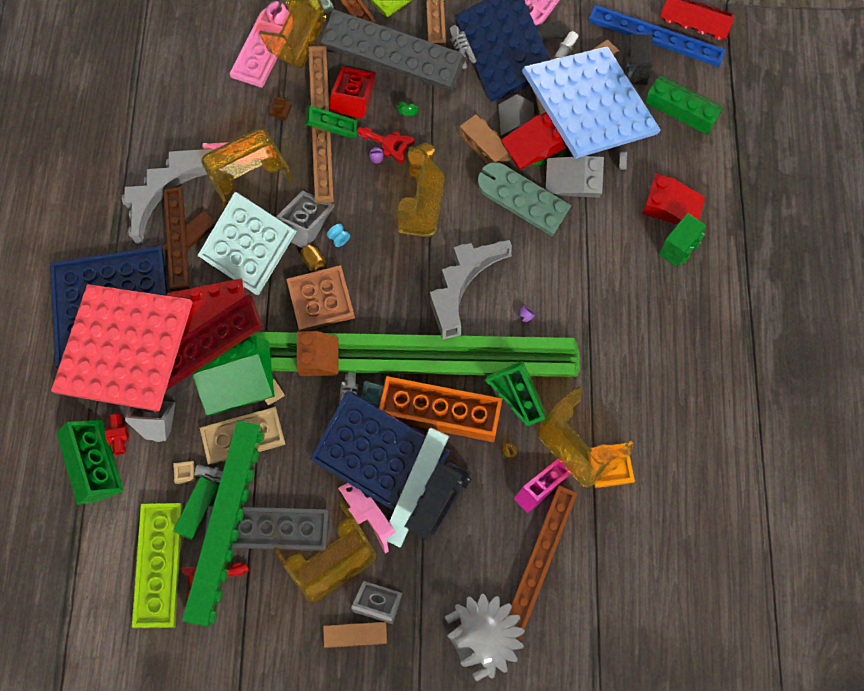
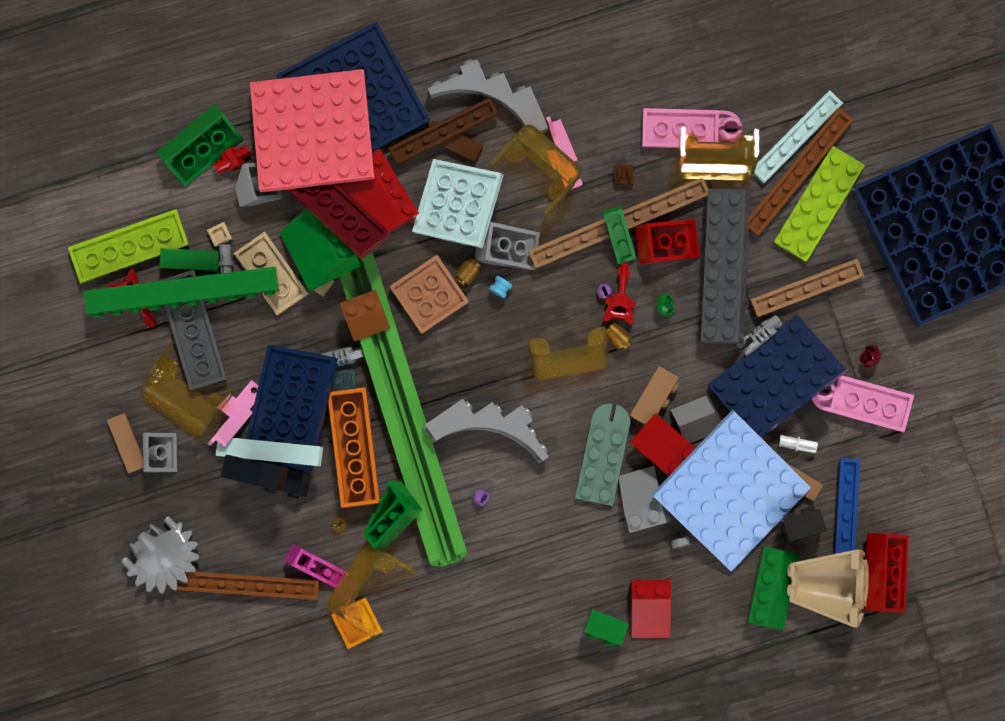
camera: 65 degrees right, 15 degrees up
(699, 50) = (832, 585): none -> tan cone

